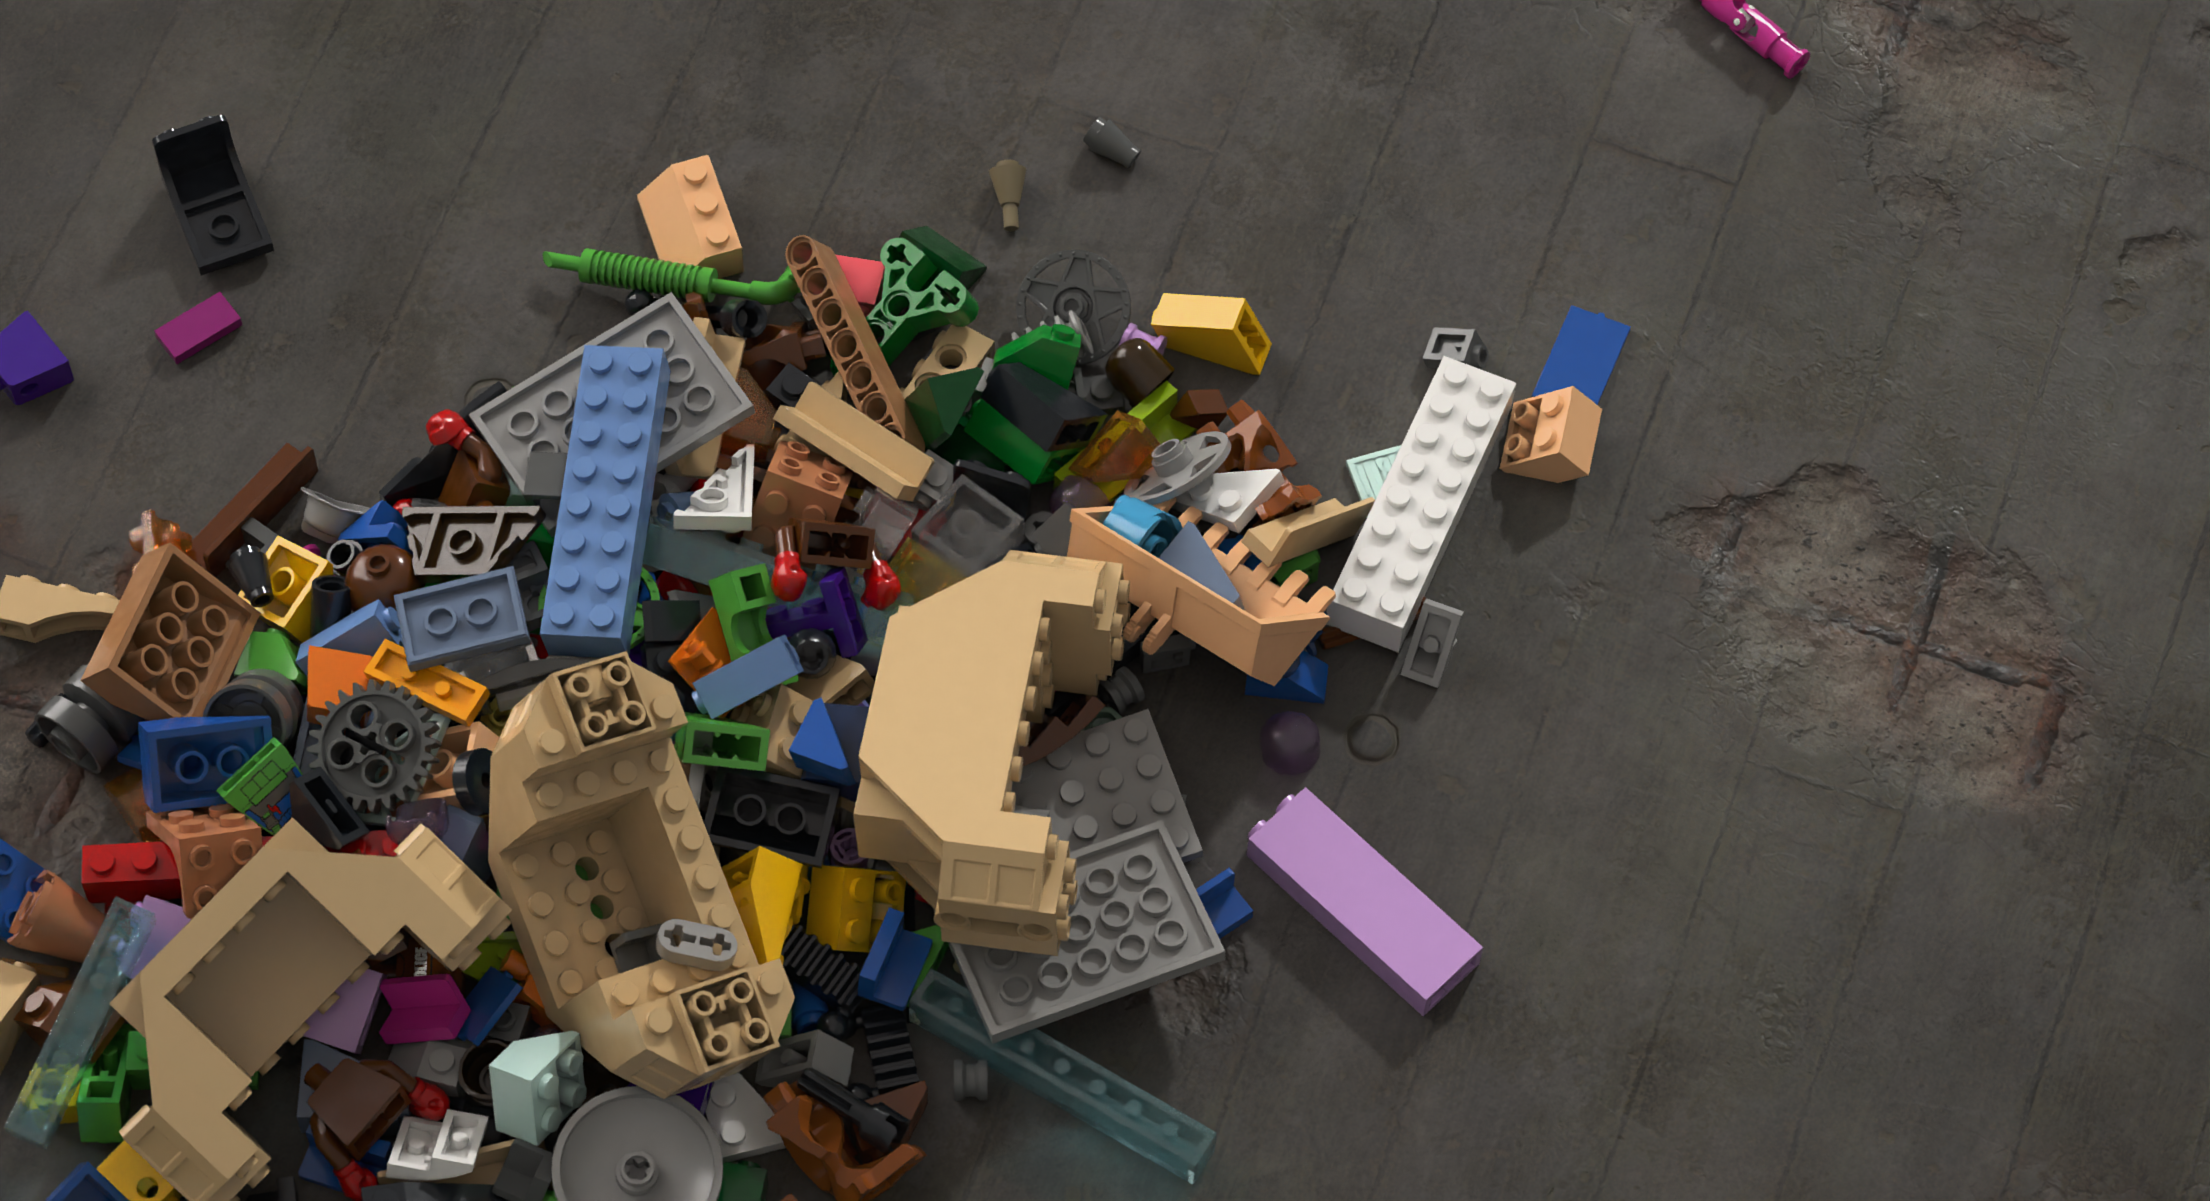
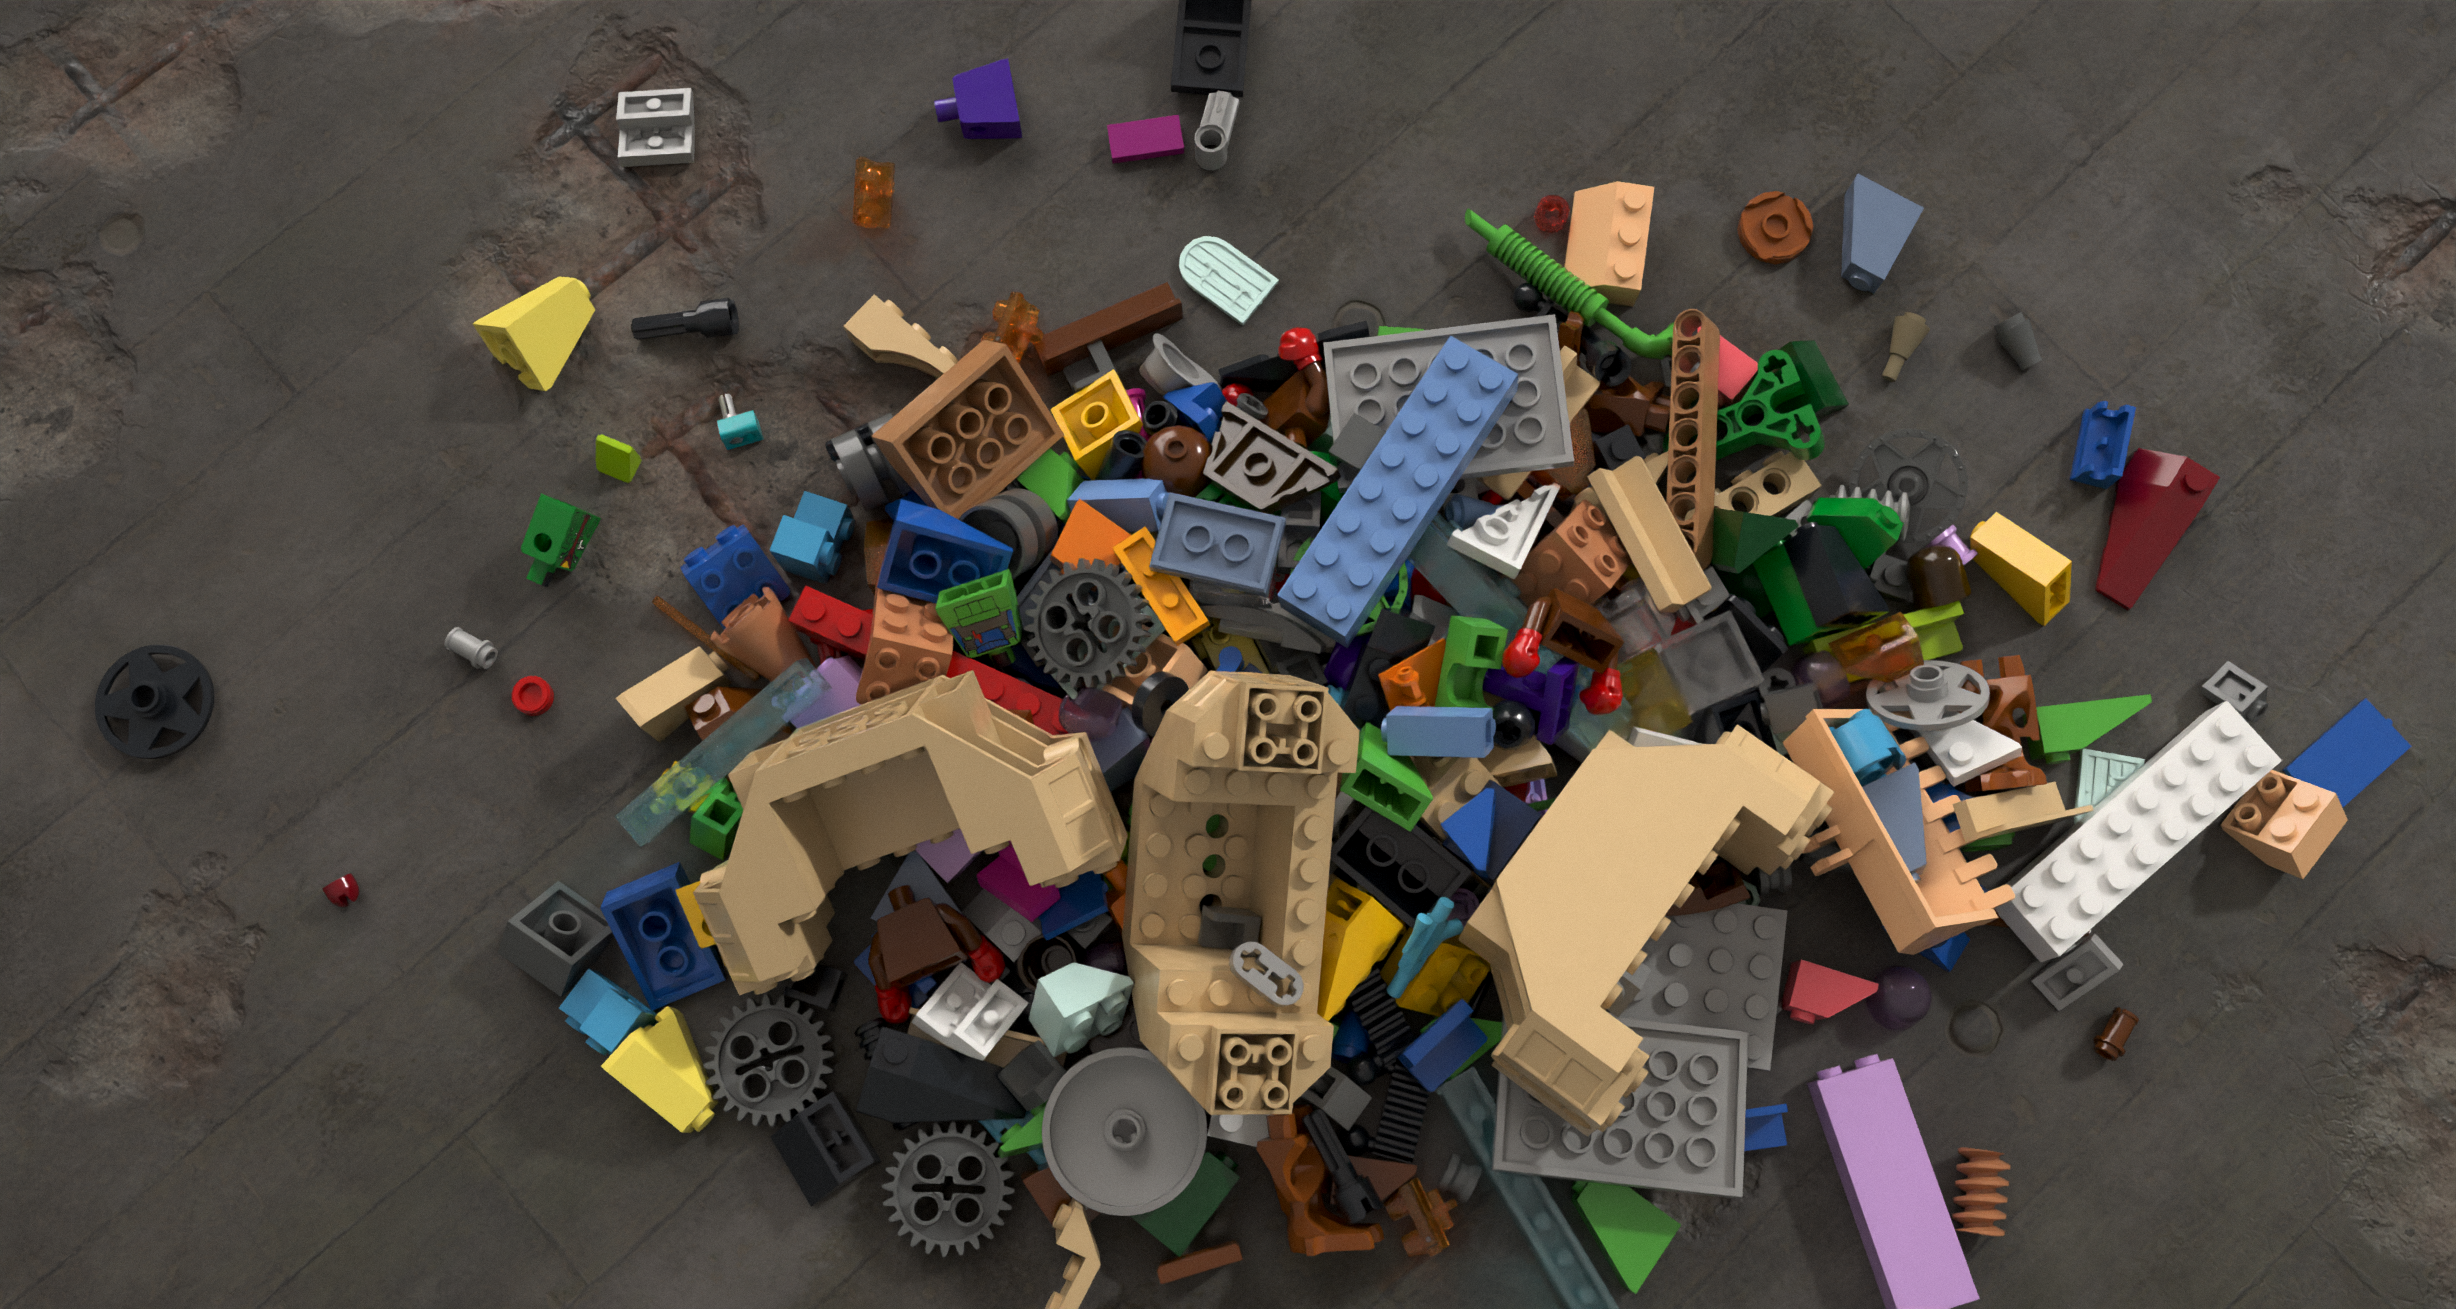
camera: 30 degrees right, 15 degrees up
(60, 817) = (813, 538): none -> dark azure brick
(252, 574) = (1073, 395): black cone -> none
(263, 289) = (1215, 130): none -> light grey piece
(324, 810) = (1015, 664): black slope -> none
(340, 415) = (1225, 277): none -> light aqua window
(618, 216) = (1550, 203): none -> clear red bush
(828, 873) = (1424, 940): none -> medium azure piece
(840, 145) = (1775, 227): none -> dark orange tile
(932, 108) = (1873, 232): none -> sand blue slope
(937, 1121) = (1413, 1201): none -> clear orange hips
(1138, 1046) = (1625, 1228): none -> bright green slope
(1200, 407) = (1976, 639): reddish brown slope -> none
(1218, 766) = (1821, 992): none -> coral slope
(1231, 198) = (2102, 445): none -> blue hinge
(1303, 235) = (2150, 515): none -> dark red wedge
(1328, 440) = (2076, 725): none -> bright green slope
(1438, 863) = (1980, 1192): none -> nougat piece
(1494, 689) = (2115, 1034): none -> reddish brown pin

